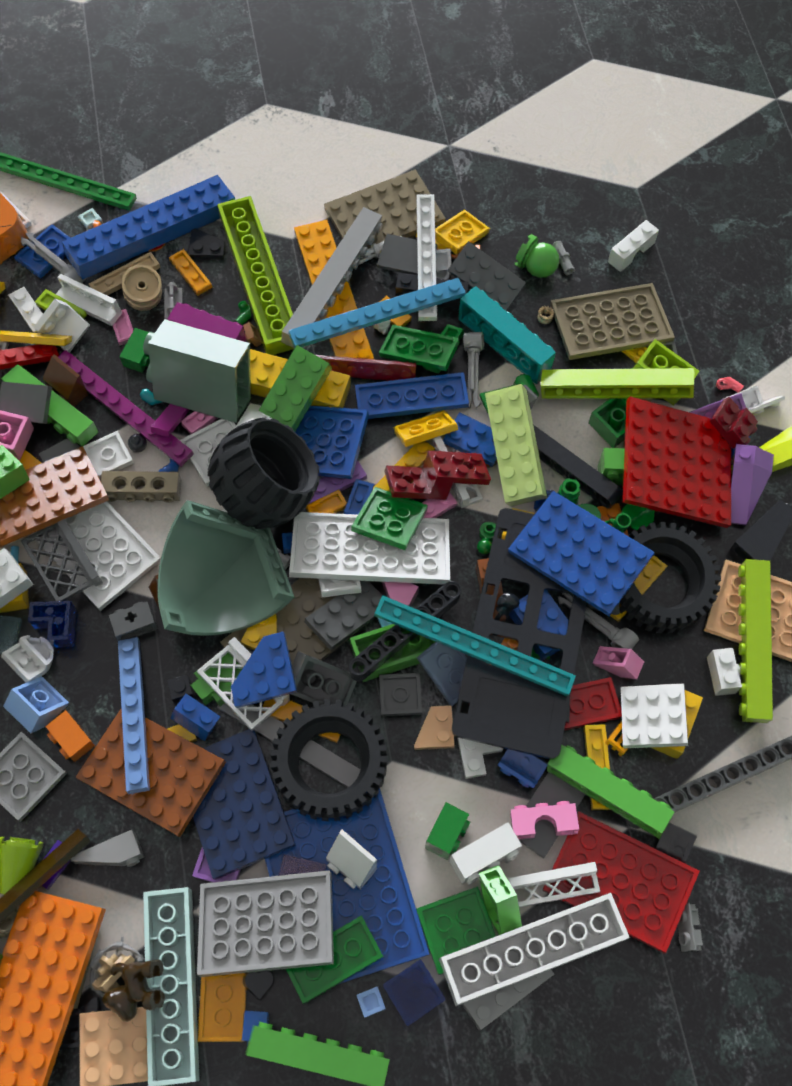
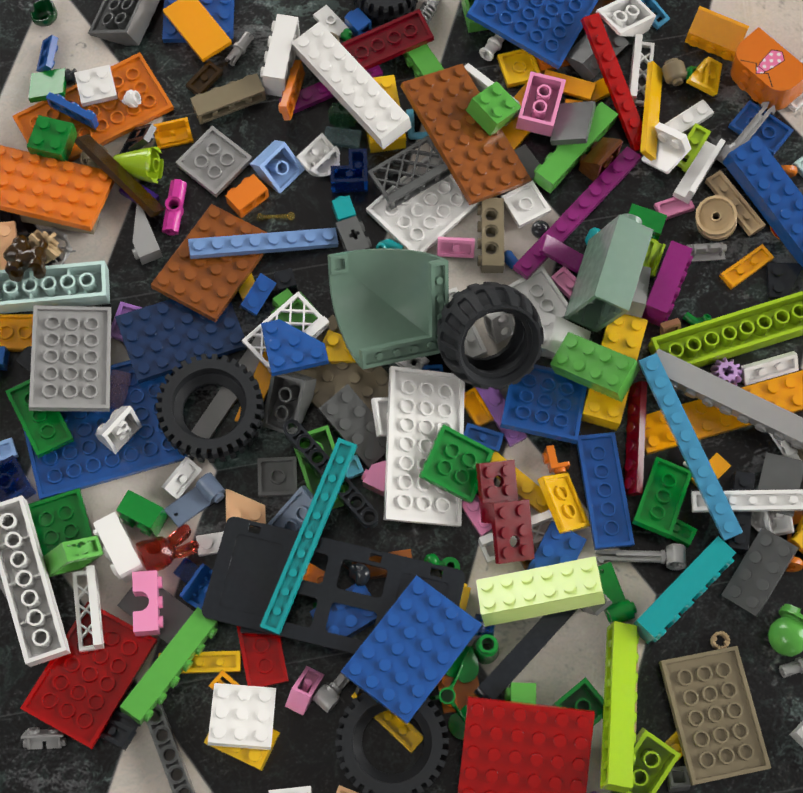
camera: 90 degrees right, 5 degrees up
(63, 818) = (175, 198): none -> dark pink piece
(97, 690) = (290, 216): none -> clear yellow hinge
(98, 631) = (343, 208): none -> teal brick
(142, 586) = (388, 243): none -> teal arm
(151, 520) = (456, 247): none -> bright pink plate
(294, 259) = (769, 368): none -> white plate
(296, 291) = (728, 367): none -> lavender gear
(384, 438) = (550, 458): none -> orange bracket
(403, 794) = (181, 478): none -> white plate
(426, 779) = (196, 500): none -> sand blue door
(488, 810) = (161, 551): none -> clear red piece
(503, 785) = (186, 570): none -> clear blue tile

